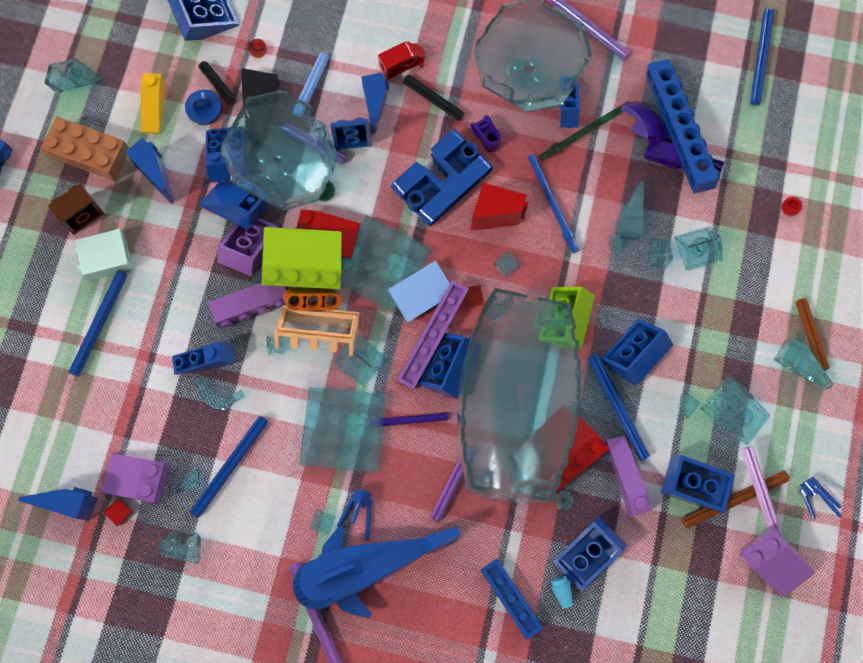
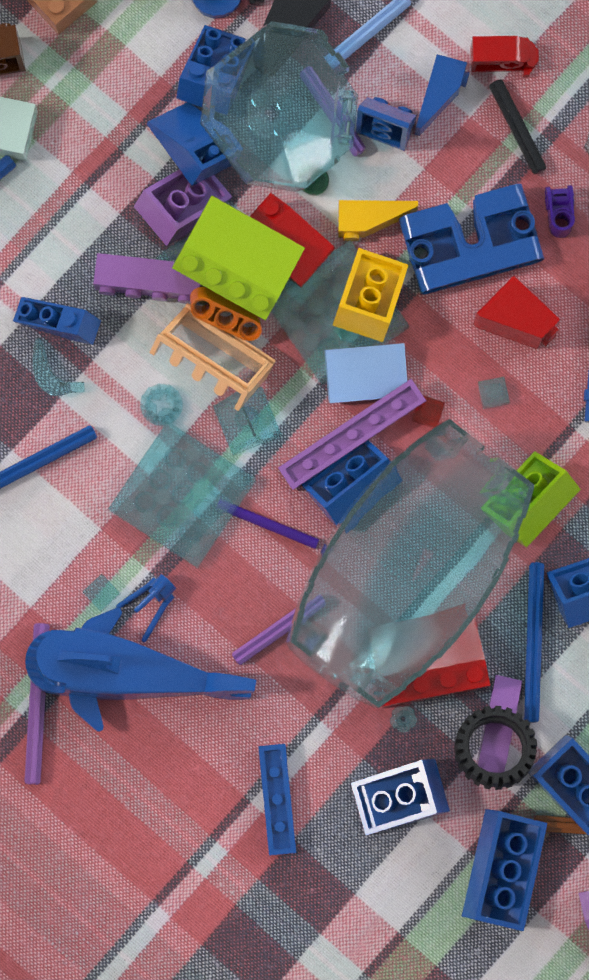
camera: 30 degrees right, 5 degrees up
(149, 163) = (111, 32): blue slope -> none
(271, 346) = (146, 346): clear light blue wheel -> none
(293, 385) = (149, 408): none -> clear light blue gear
(369, 196) = (365, 217): none -> yellow slope
(398, 241) = (370, 295): none -> yellow slope
(562, 589) = (343, 822): medium azure cone -> none
(644, 466) = (509, 719): none -> black tyre
(684, 566) = (504, 869): none -> blue slope

